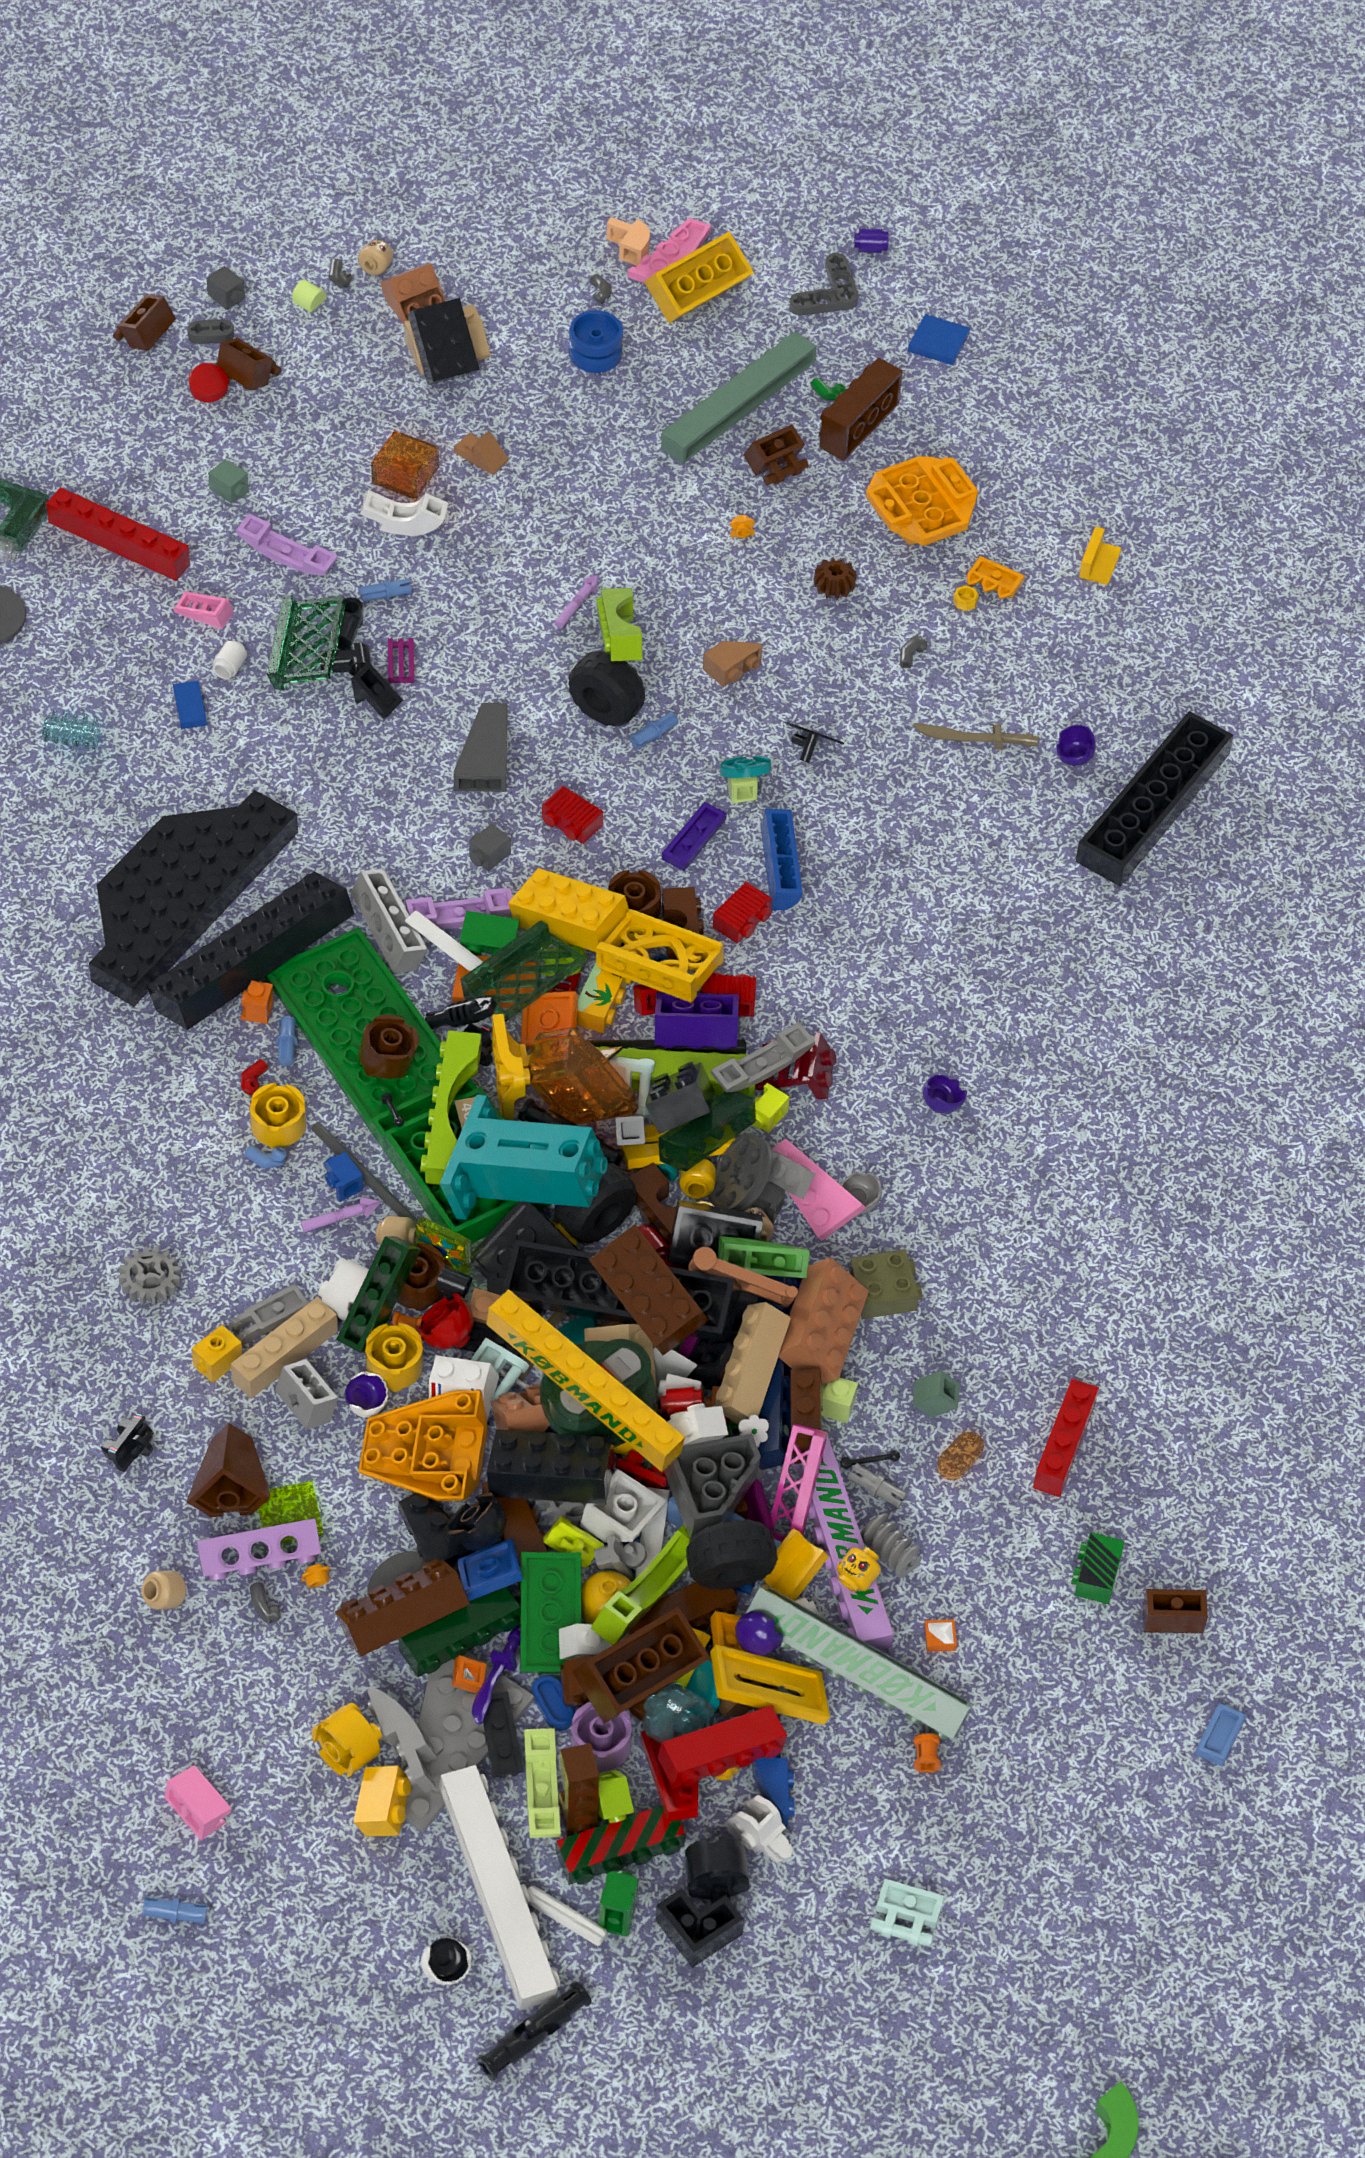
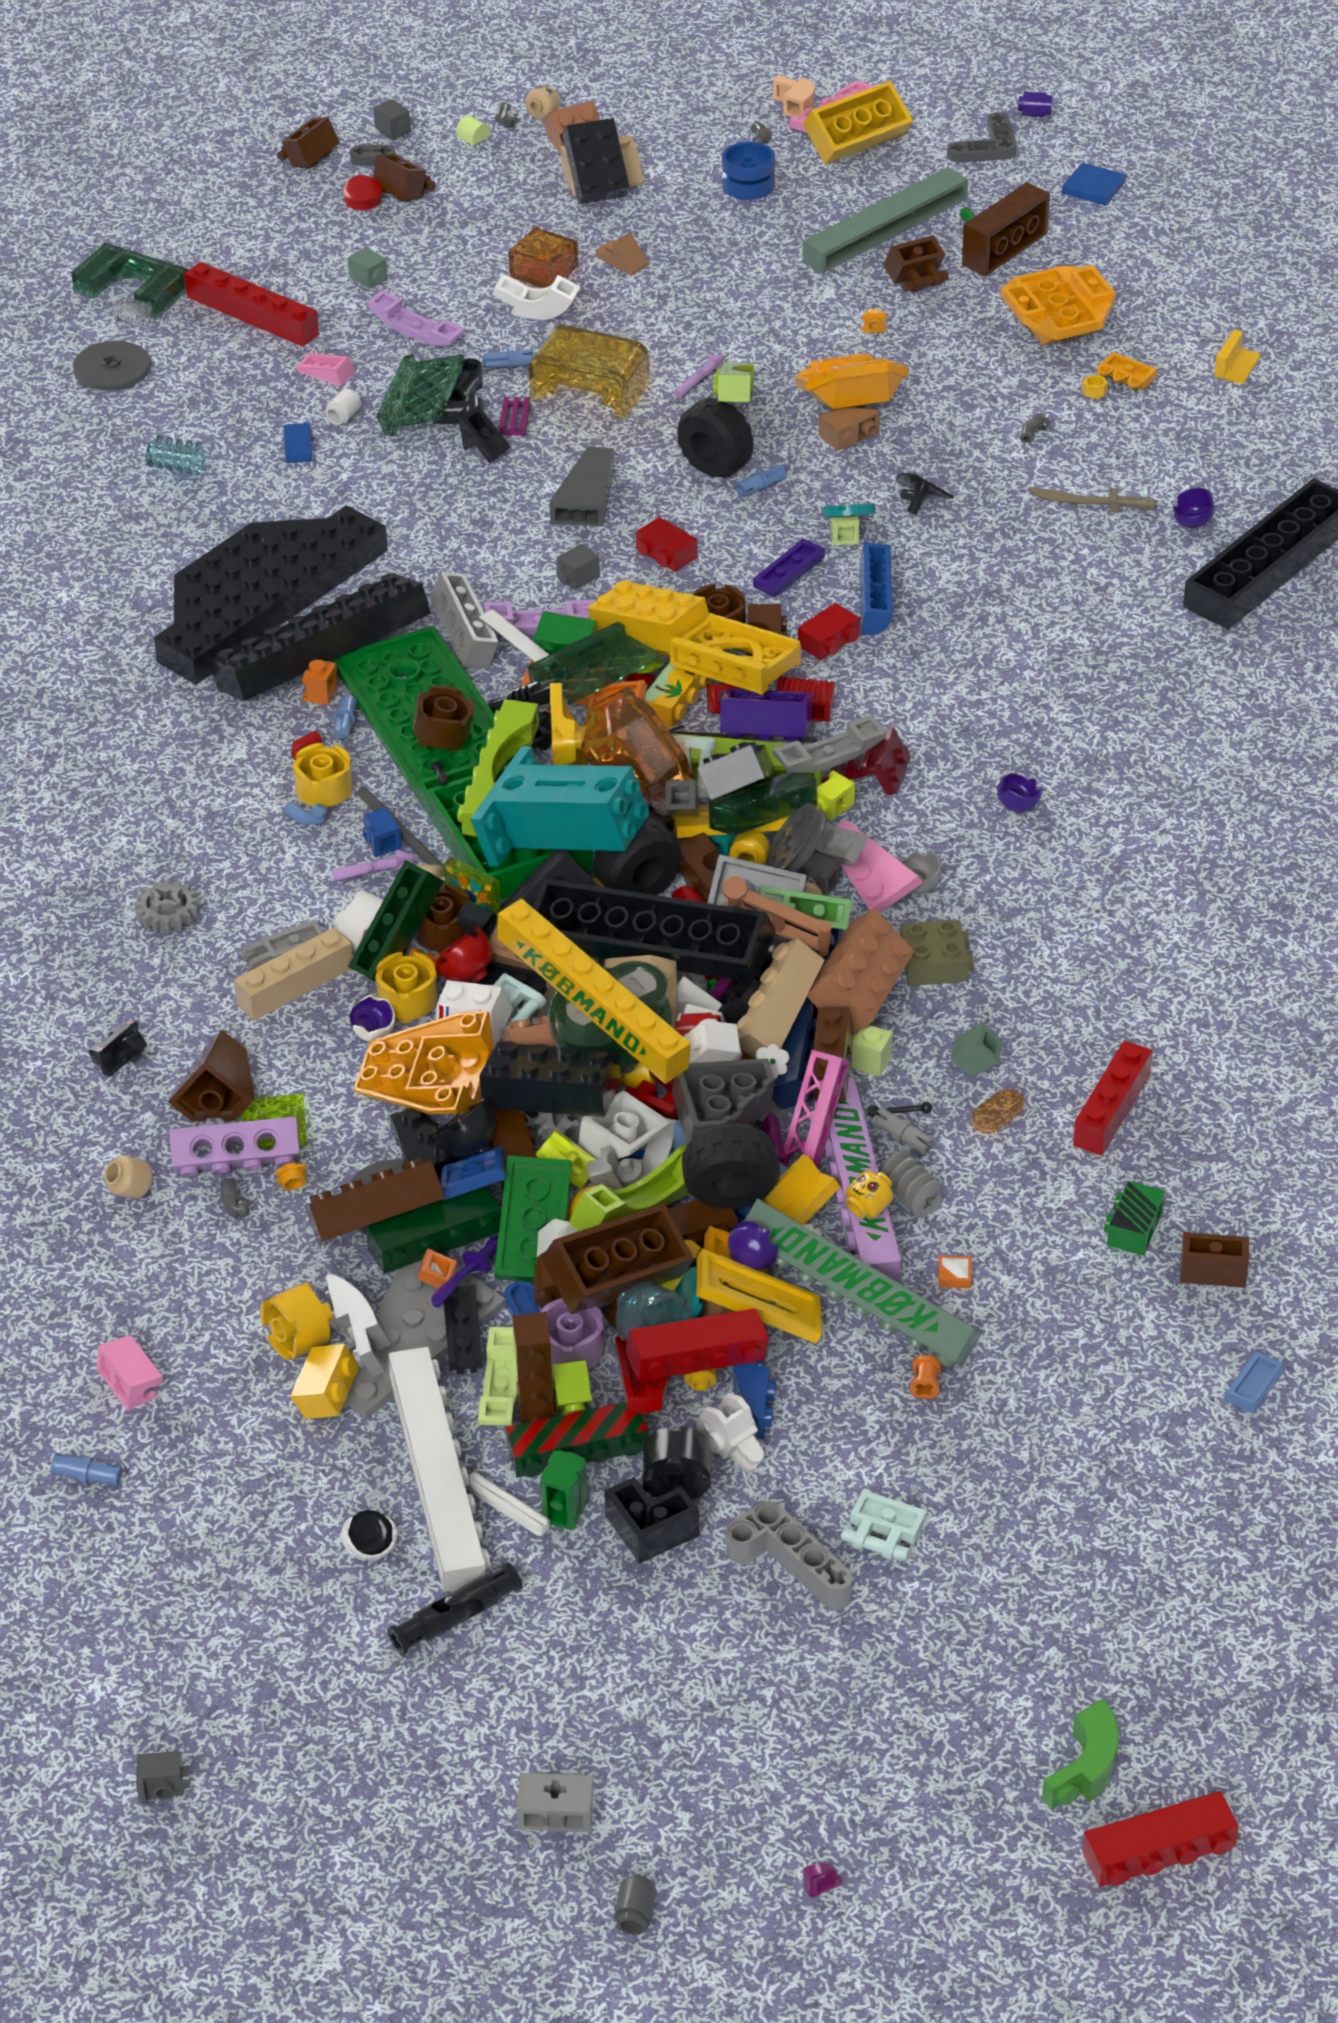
camera: 10 degrees right, 10 degrees down
(216, 1353) = (218, 973): yellow head -> none
(306, 1394) = (309, 1013): light grey brick -> none
(472, 602) = (591, 363): none -> clear yellow windscreen
(648, 1290) = (674, 919): reddish brown brick -> none
(730, 607) = (851, 380): none -> light orange piece
(831, 1954) = (788, 1542): none -> light grey beam
(835, 578) = (962, 365): reddish brown gear -> none

